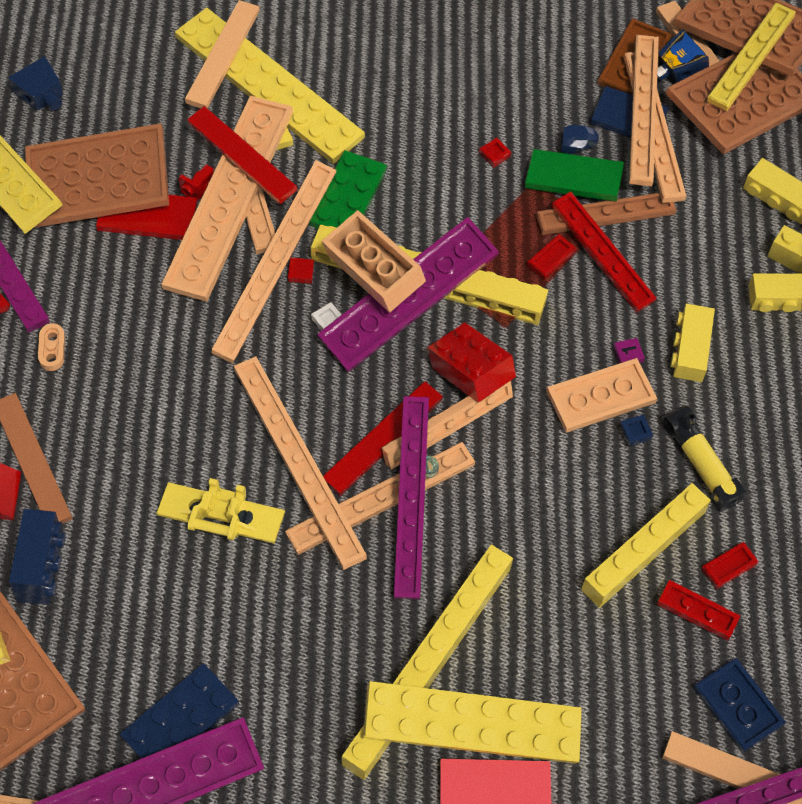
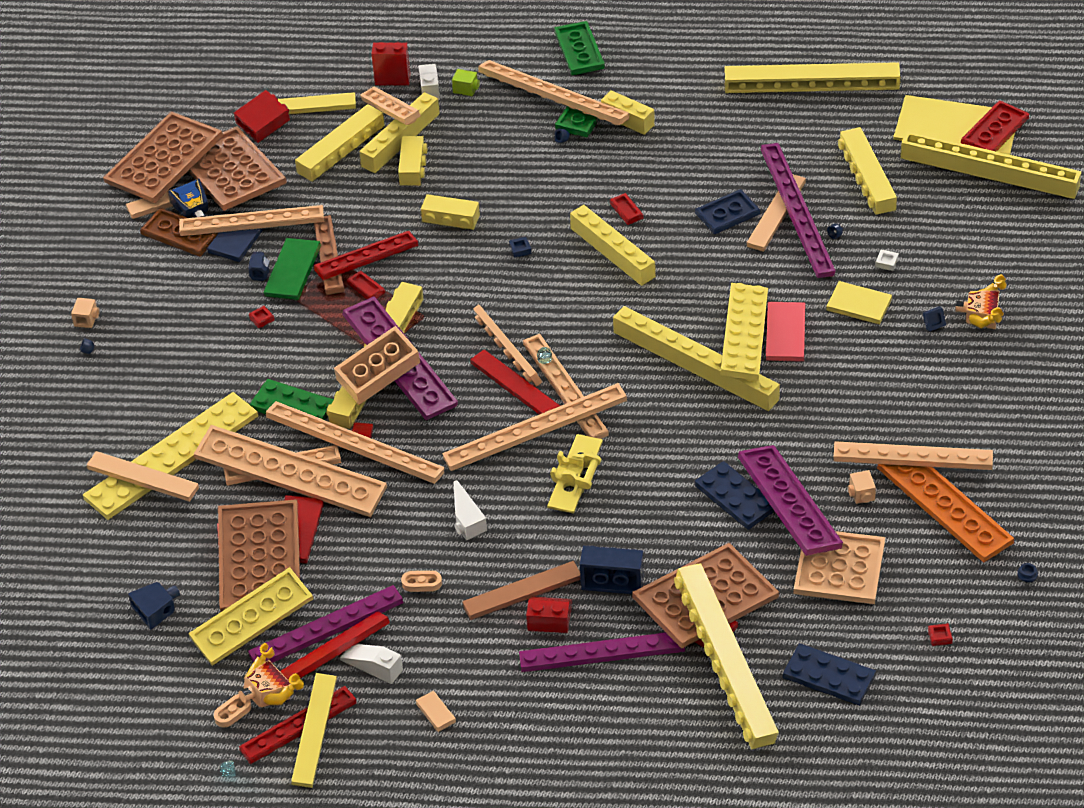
camera: 80 degrees left, 15 degrees down
(156, 388) = (469, 518): none -> white slope
(199, 183) = (271, 490): red bracket -> none
(242, 155) = (254, 456): red tile -> none
(325, 316) = (409, 414): white plate -> none
(411, 498) = (572, 359): magenta plate -> none
(471, 362) = (462, 324): red brick -> none
(601, 395) = (489, 264): light nougat plate -> none
(628, 350) = (453, 249): magenta tile -> none
(644, 111) = (239, 221): light nougat tile -> none
(698, 610) = (660, 224): red plate -> none
(725, 490) = (525, 219): piece -> none
(751, 56) = (204, 152): light yellow tile -> none

